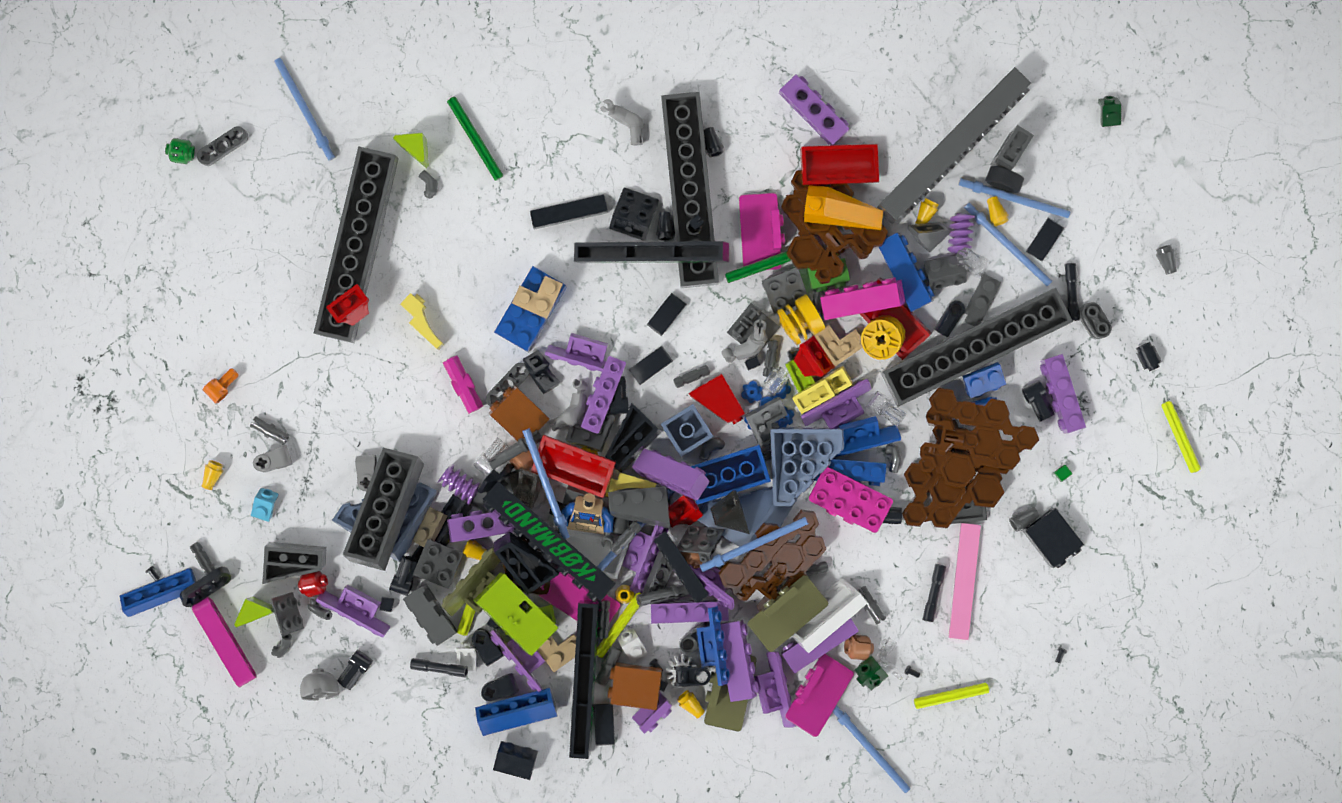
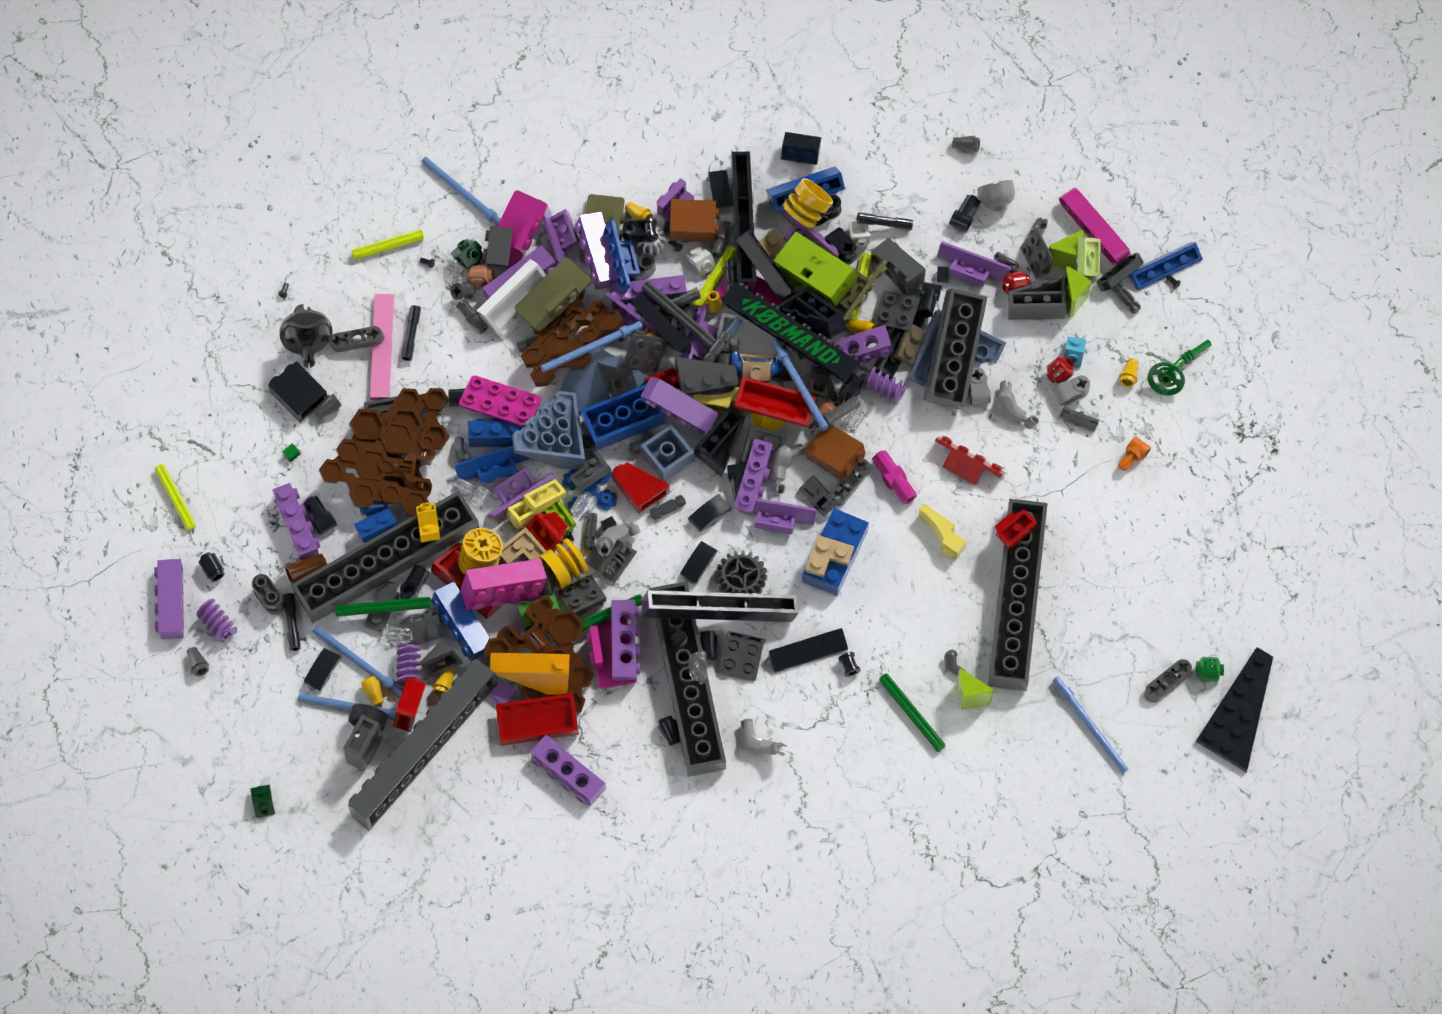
camera: 175 degrees right, 20 degrees down
(162, 101) = (1236, 719): none -> black wing
(173, 465) = (1169, 372): none -> green dish
(233, 601) = (1089, 256): none -> yellowish green tile
(252, 566) = (1076, 289): none -> lime slope
(281, 482) = (1060, 370): none -> red head
(338, 448) = (1010, 409): none -> light grey arm
(343, 750) = (968, 143): none -> dark grey cone
(389, 393) = (966, 464): none -> red bracket
(515, 687) = (807, 203): none -> yellow wheel
(530, 192) = (849, 664): none -> black bush
(567, 623) = (765, 264): none -> black slope
(609, 296) = (748, 573): none -> dark grey gear
(661, 577) = (678, 314): none -> dark grey axle
(681, 185) = (696, 671): none -> clear bracket
(746, 202) = (622, 670): none -> medium lavender brick
(839, 674) = (498, 246): none -> dark grey brick
(870, 196) = (503, 692): none -> medium lavender tile
(881, 631) = (464, 290): none -> dark grey bush
(933, 370) = (428, 522): none -> yellow slope
(963, 187) = (409, 704): none -> red slope
(977, 585) = (369, 331): none -> dark grey beam
(982, 294) = (383, 606): none -> green axle
(1043, 596) = (305, 333): none -> dark grey piece
(1055, 343) = (304, 567): none -> reddish brown plant
(1147, 297) = (215, 622): none -> medium lavender piece
(1190, 326) = (170, 599): none -> medium lavender brick

